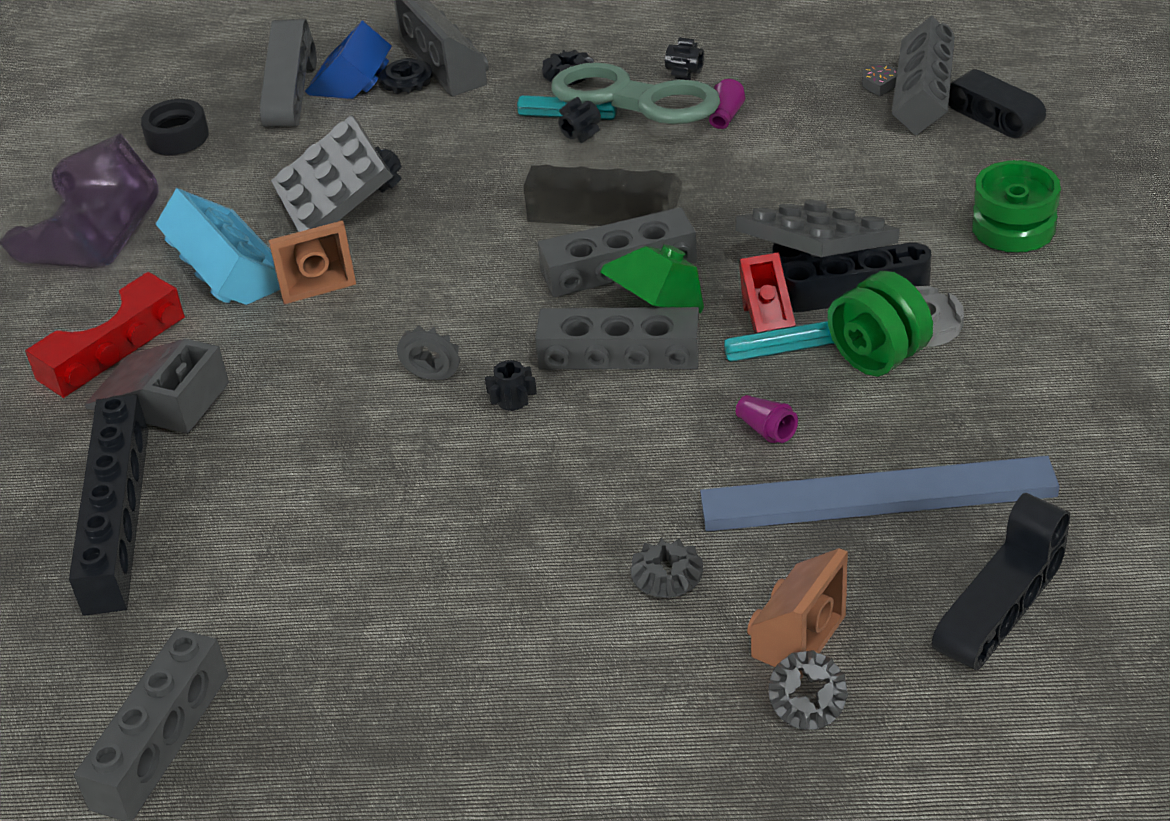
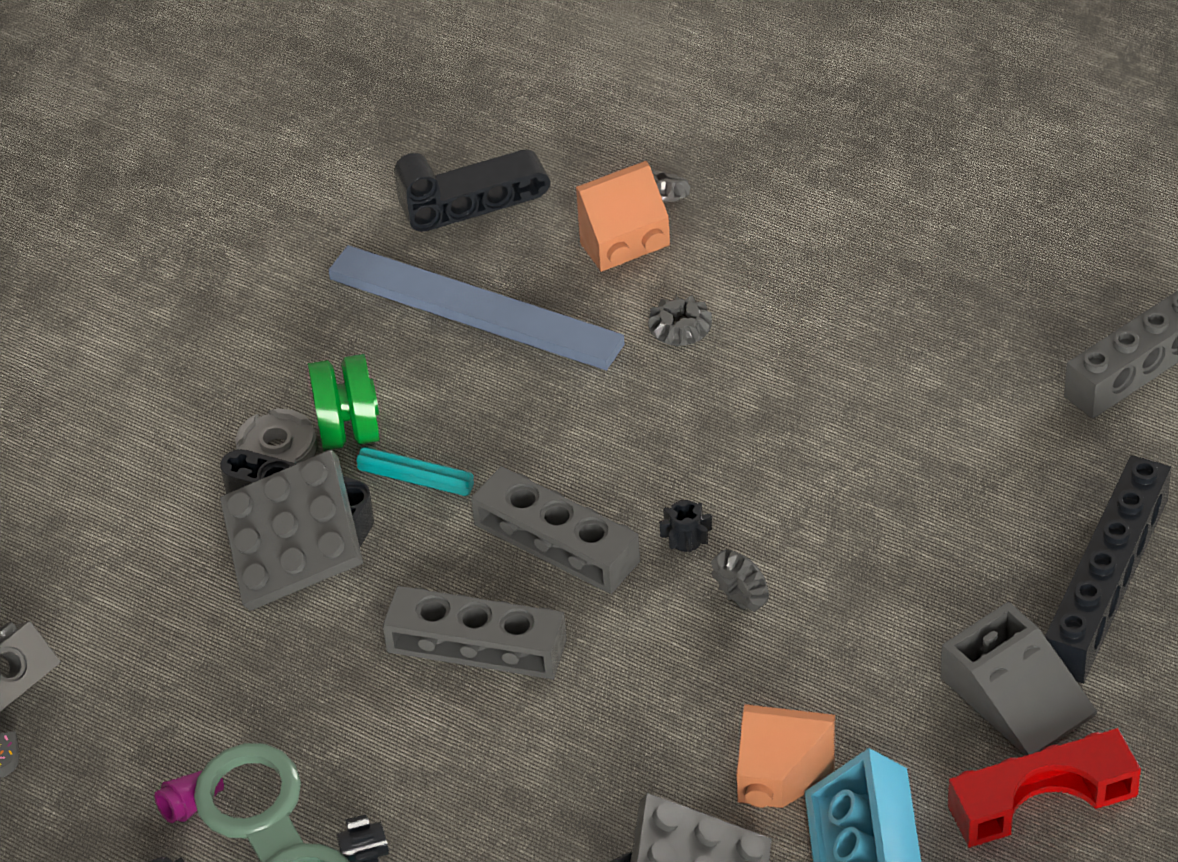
camera: 150 degrees left, 5 degrees up
(597, 195) = (423, 723): clear smoke slope -> none
(658, 277) = (482, 544): green slope -> none
(765, 293) = (395, 497): red slope -> none
(768, 418) = (499, 395): magenta cone -> none
(1015, 206) = (92, 480): green wheel -> none

